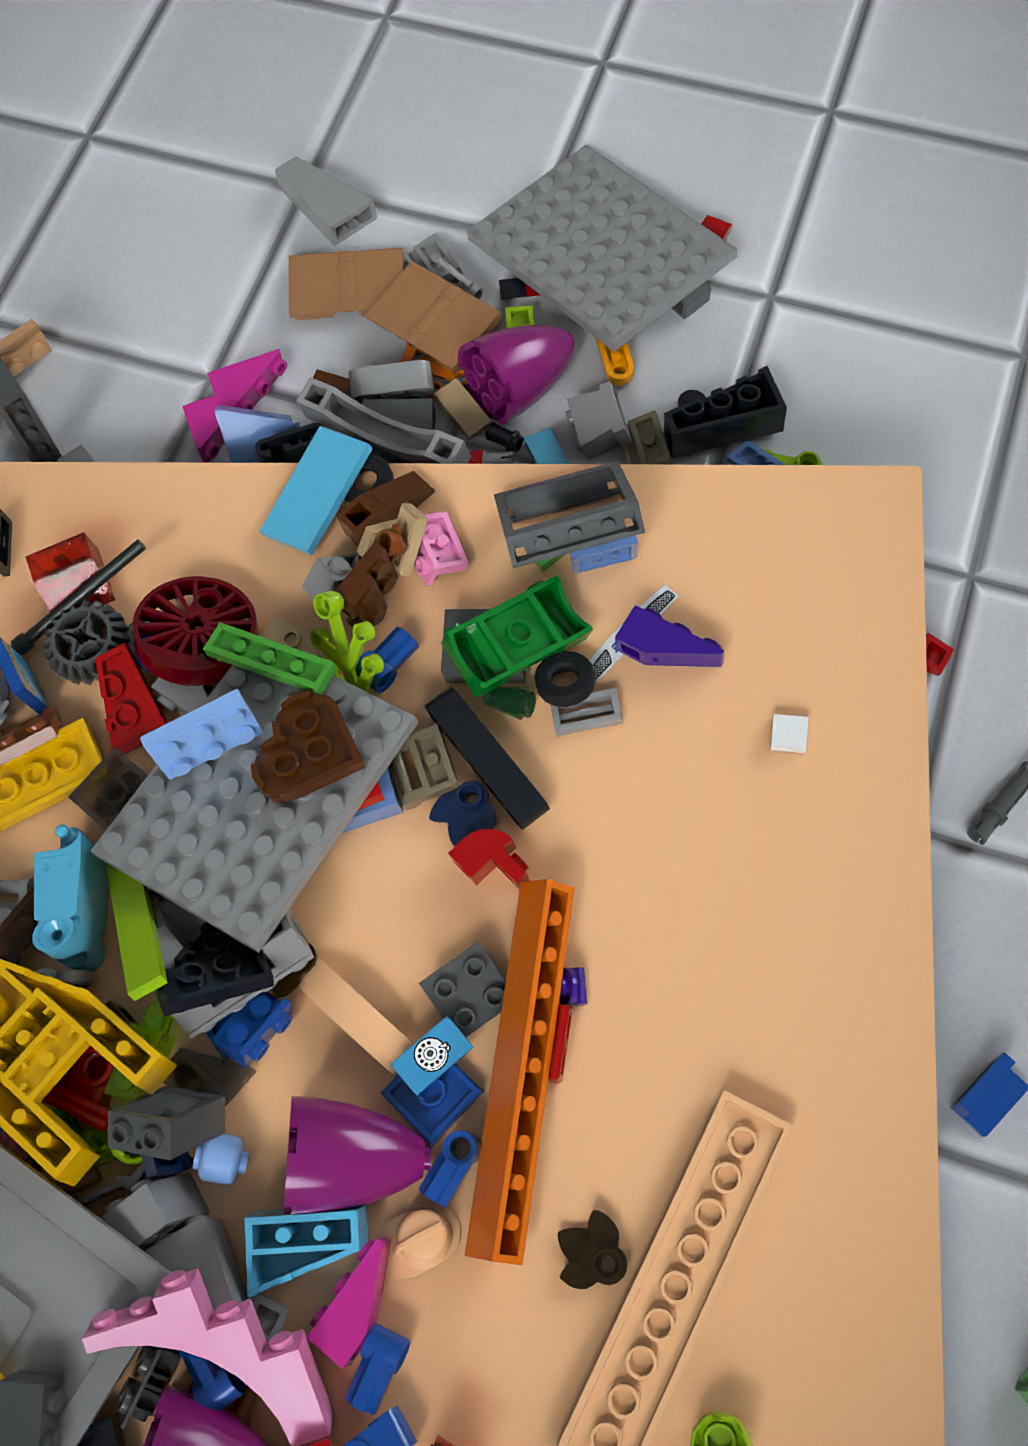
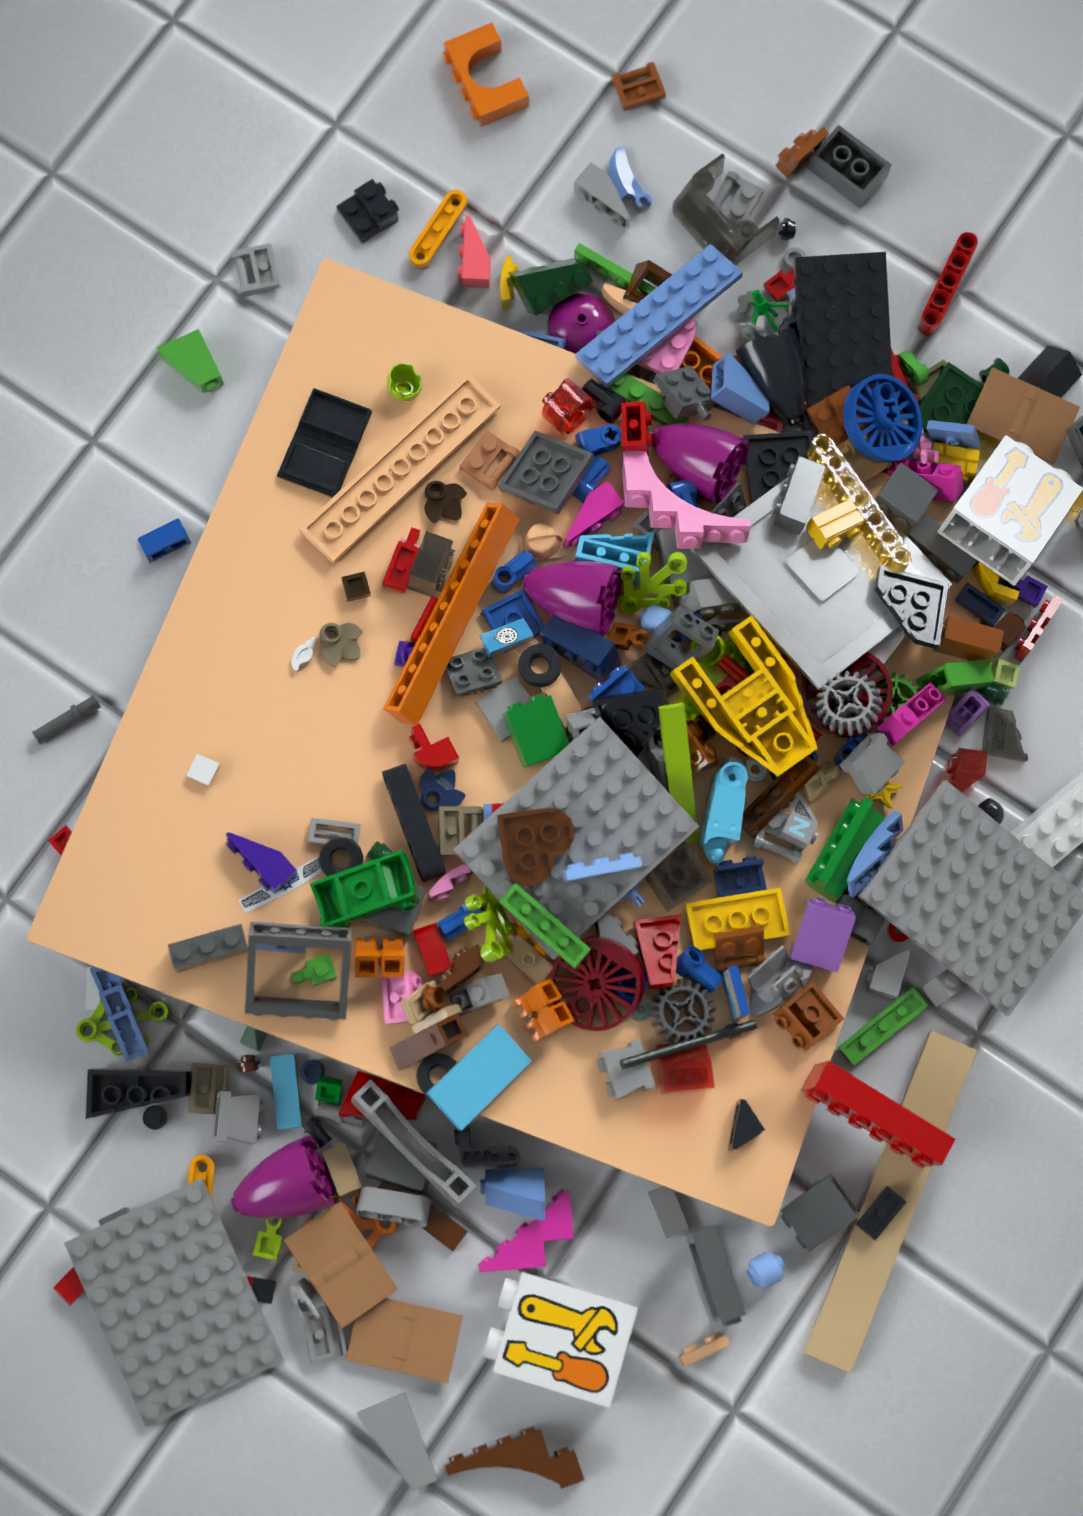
camera: 170 degrees left, 10 degrees up
(36, 828) = (739, 877): none -> dark blue bracket
(74, 696) = (692, 964): none -> blue piece
(108, 968) = (701, 753): none -> dark orange plate
(153, 564) = (625, 1081): none -> light grey hips
(171, 315) = (561, 1338): none -> brick
(197, 220) = (522, 1453): none -> reddish brown arch
(255, 581) = (541, 1000): none -> orange legs
(263, 1118) = (627, 635): none -> dark orange plate
(265, 1176) = (632, 601): none -> lime plant
(322, 1073) = (582, 648): none -> dark blue wedge
(349, 1029) = (539, 651): none -> black tyre
(353, 931) = (535, 729): none -> green brick
(403, 957) = (496, 702): none -> light grey tile
(414, 613) = (432, 949): none -> red slope
(423, 686) = (444, 886): none -> bright pink slope
(442, 1353) = (546, 472): none -> dark grey plate
(486, 564) = (369, 958): none -> orange legs
(554, 1355) = (483, 456): none -> nougat plate
(573, 1126) = (431, 564): none -> clear smoke brick
(620, 1126) = (401, 563): none -> red hinge
(666, 969) = (342, 645): none -> dark tan plate
(677, 1063) = (356, 586): none -> dark brown plate
(692, 518) = (208, 948): none -> dark grey brick
(716, 939) = (303, 654): none -> white piece
(811, 1294) = (324, 443): none -> black piece

